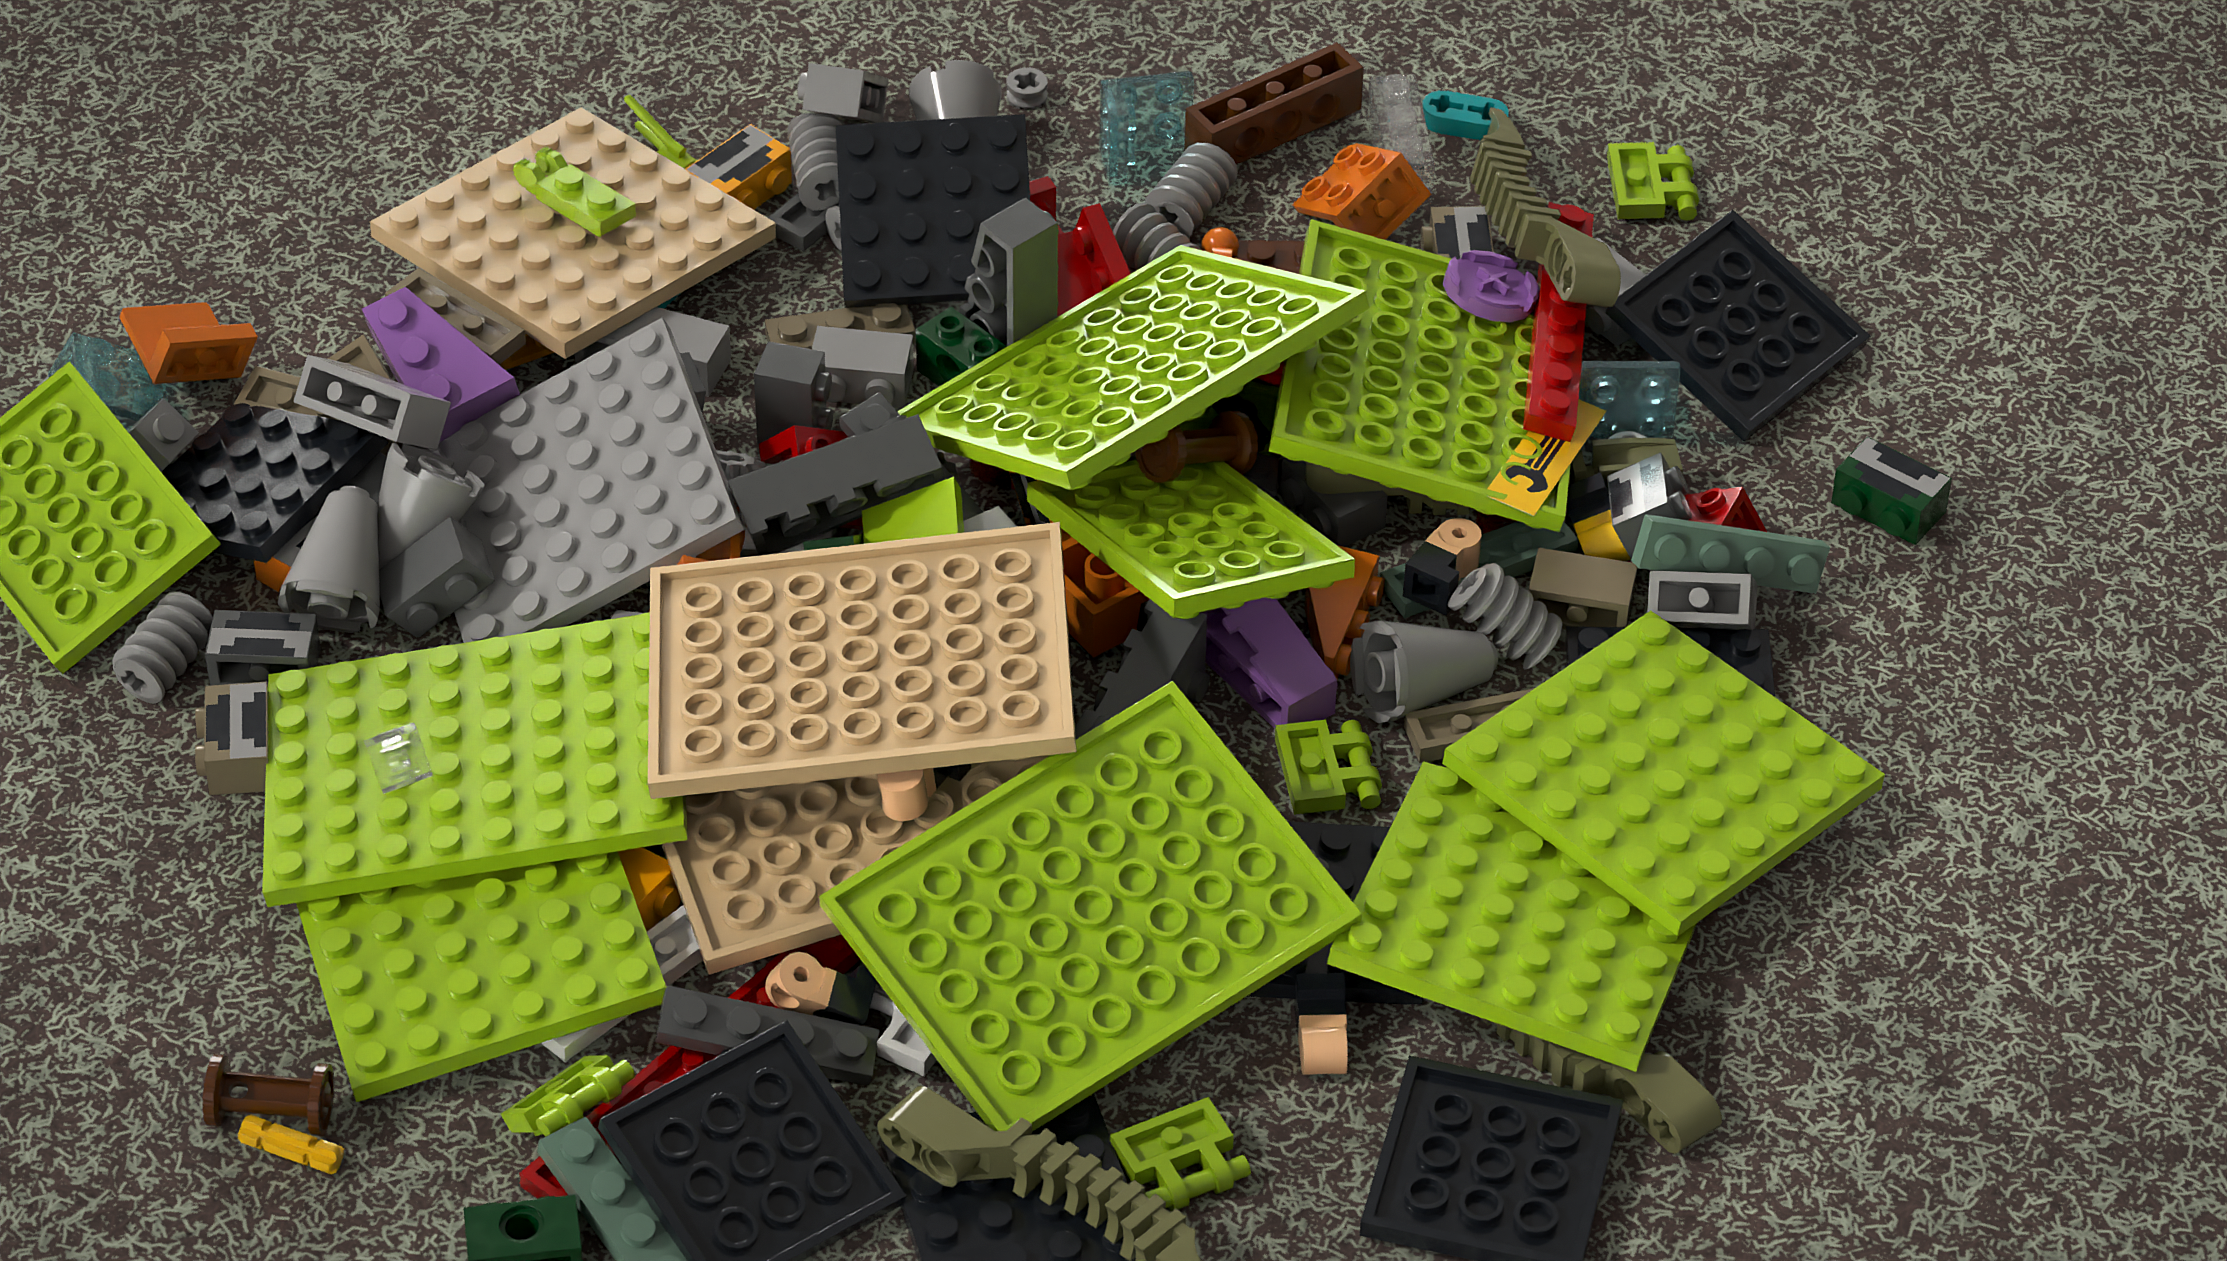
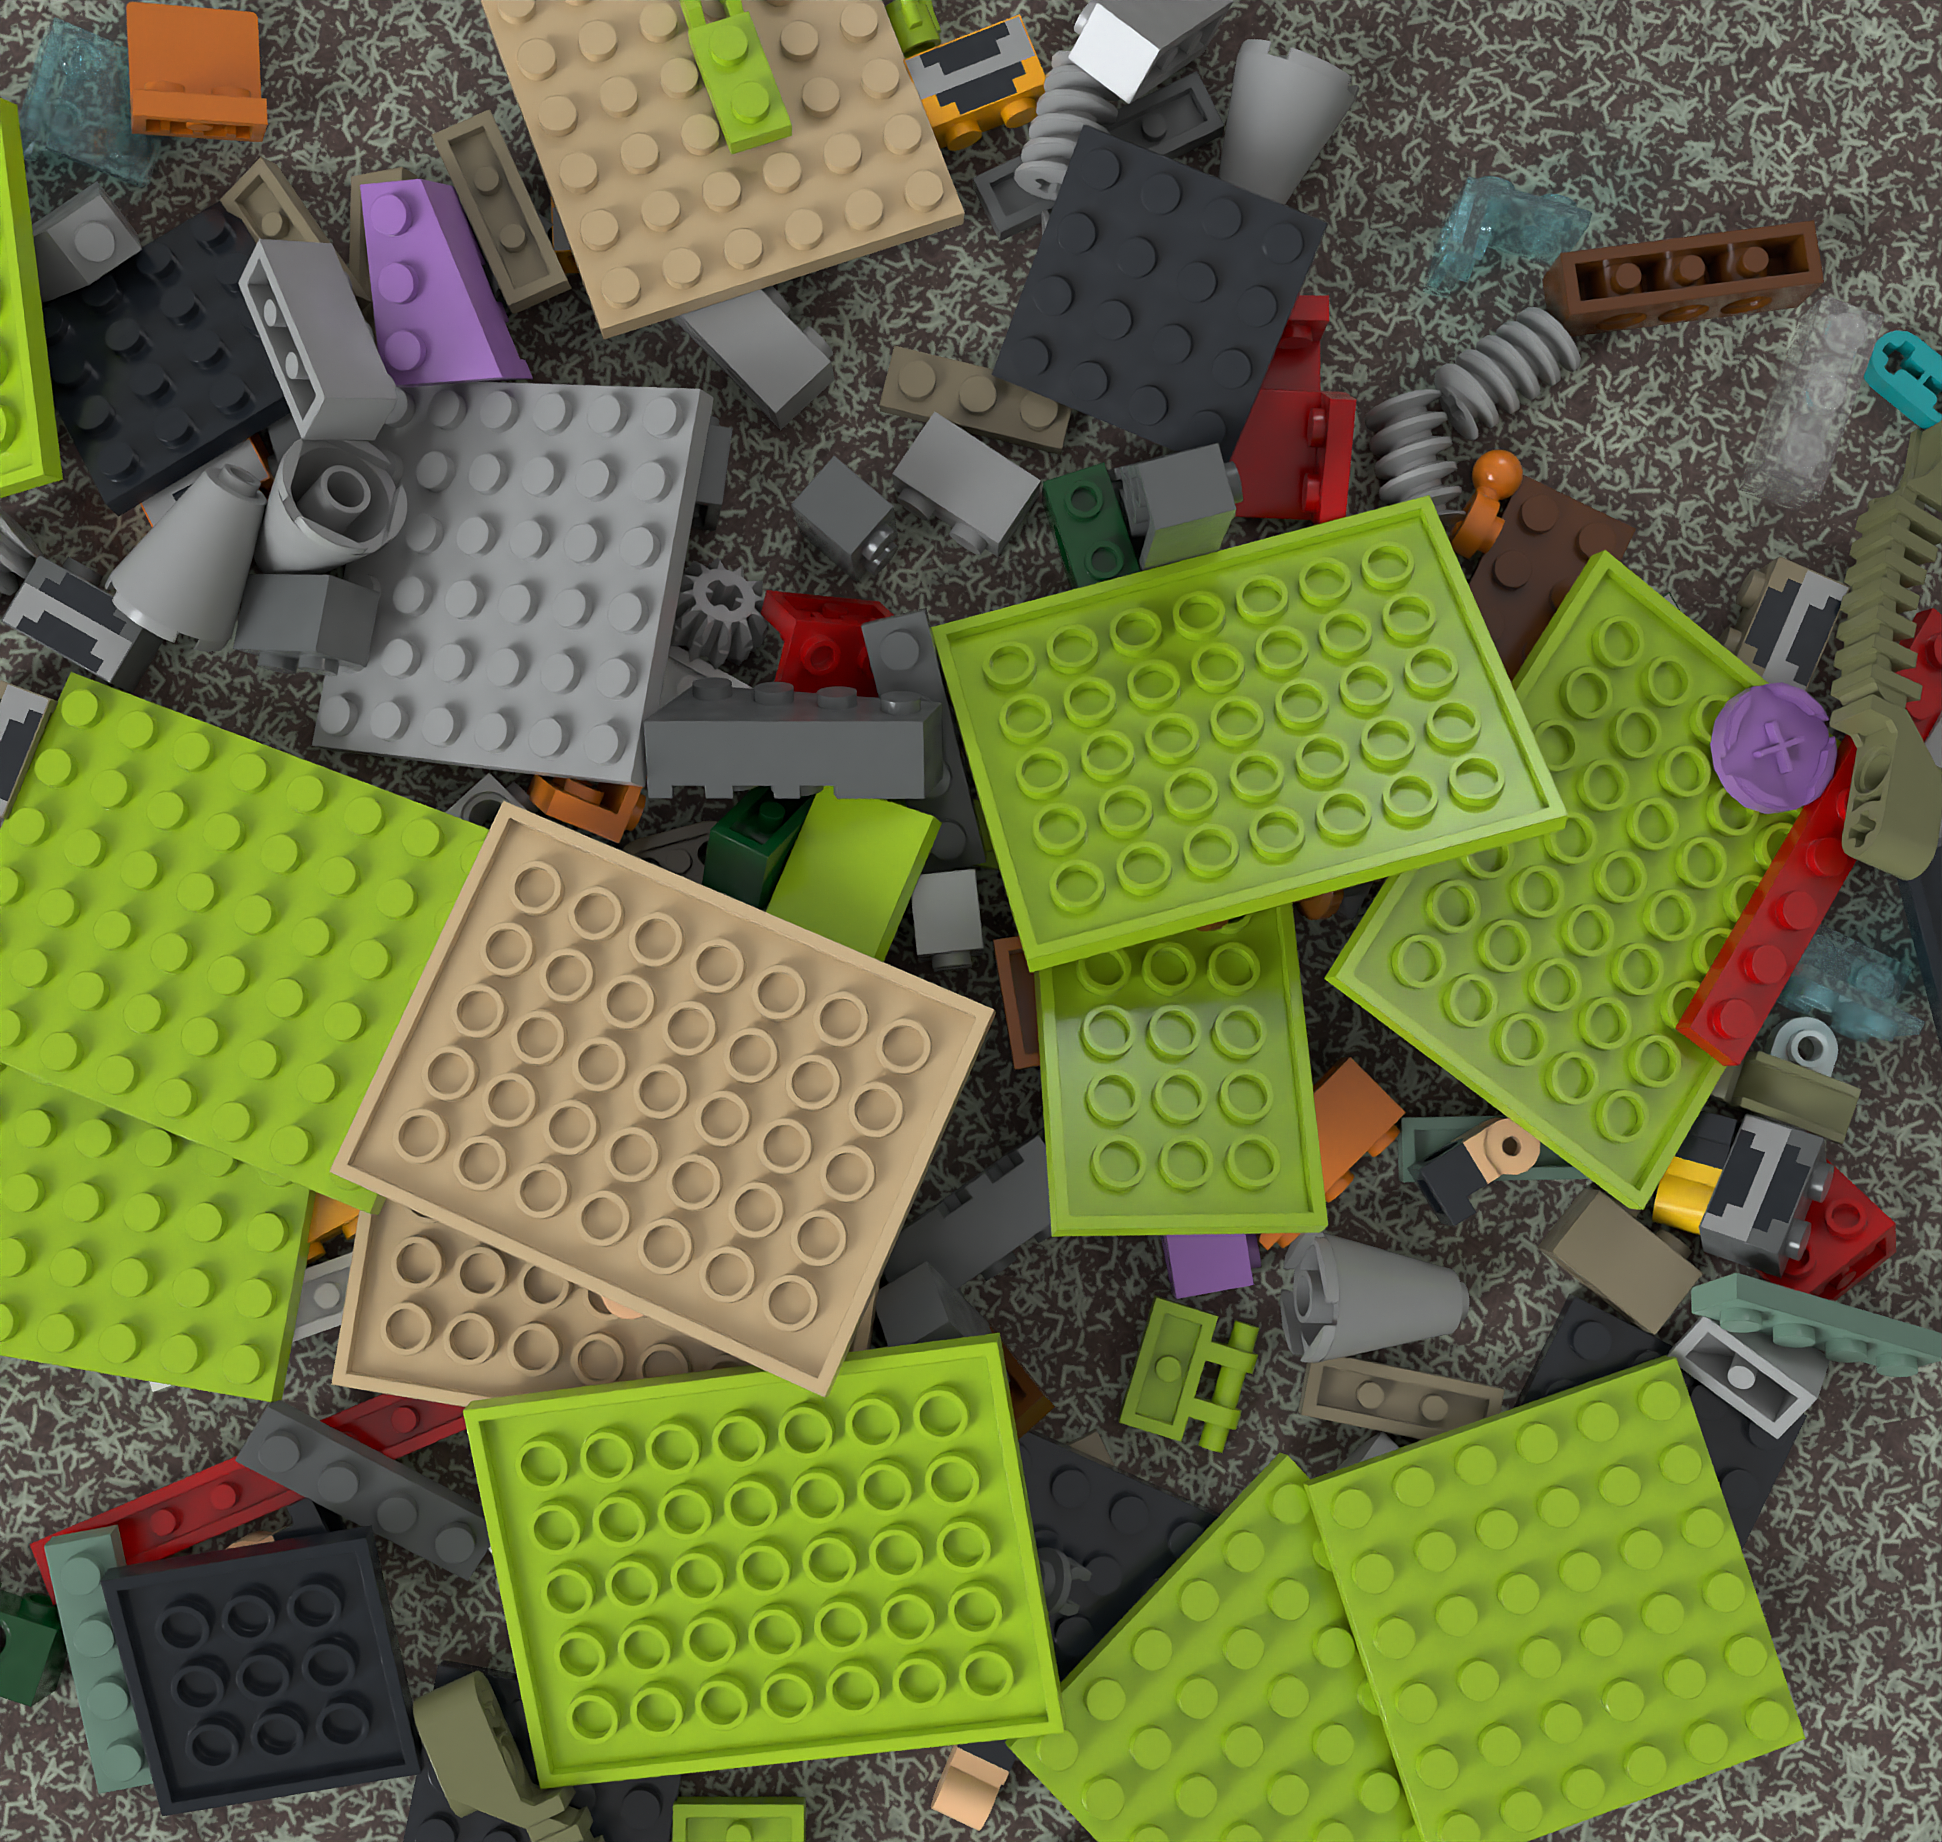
camera: 30 degrees right, 40 degrees up
(398, 757) = (103, 938): clear tile -> none
(568, 1095) = (120, 1450): lime plate -> none
(809, 989) = (437, 1461): leg -> none
(1026, 88) = (1400, 98): light grey bush -> none
(1365, 191) = (1709, 480): orange bracket -> none
(1509, 611) = (1504, 1276): light grey piece -> none
(1548, 468) = (1669, 1108): yellow sticker -> none

